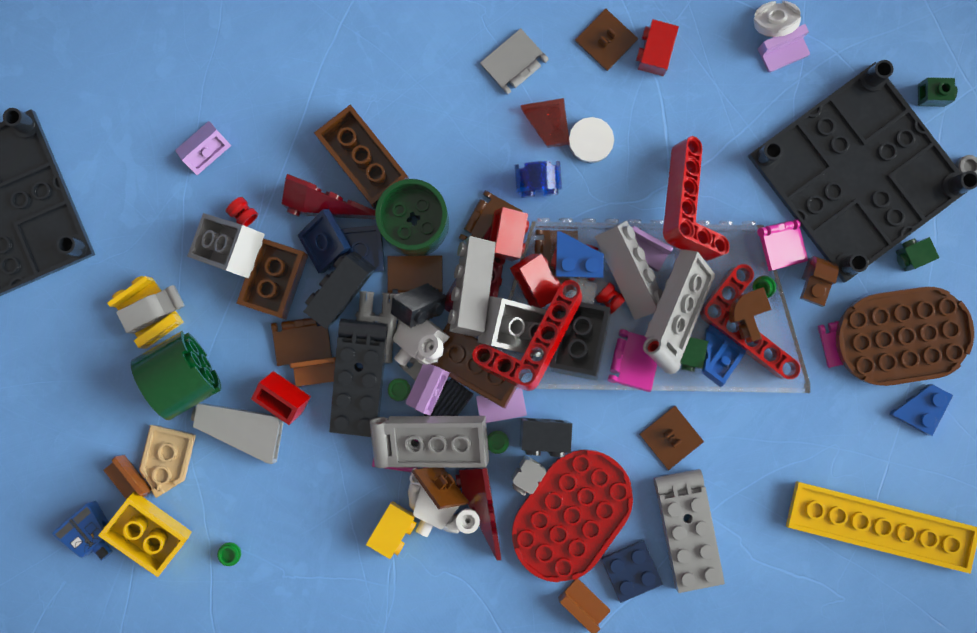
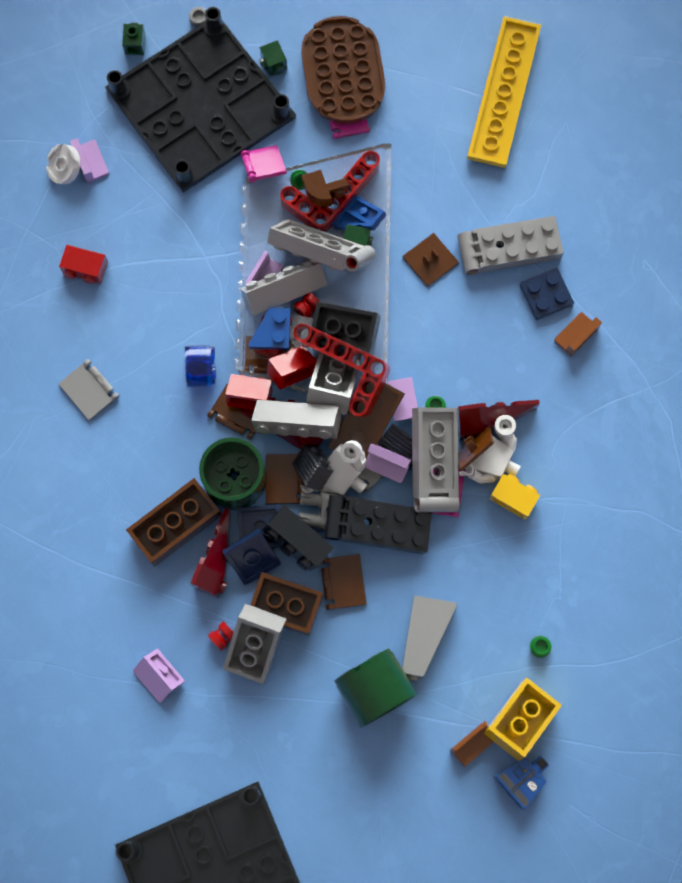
camera: 85 degrees left, 10 degrees down
(141, 288) = (314, 727): yellow panel -> none
(150, 309) = (312, 719): light grey piece -> none
(166, 458) = (453, 707): tan tile -> none
(280, 397) = (396, 595): red piece -> none
(314, 371) = (372, 567): dark orange panel -> none
(399, 389) = (388, 492): green plate -> none
(527, 476) = (464, 376): light grey brick -> none
(546, 436) = (430, 358): black brick -> none
(549, 121) = (146, 358): clear red wing -> none
(572, 516) = (499, 342): red plate -> none
(591, 140) = (164, 323): white tile -> none
(606, 39) = (72, 309): reddish brown piece -> none
(632, 362) = (363, 286): dark pink piece -> none
(681, 204) = (224, 242): red beam -> none
(819, 278) = (293, 134): reddish brown brick -> none
(924, 409) = (405, 56): blue wing -> none

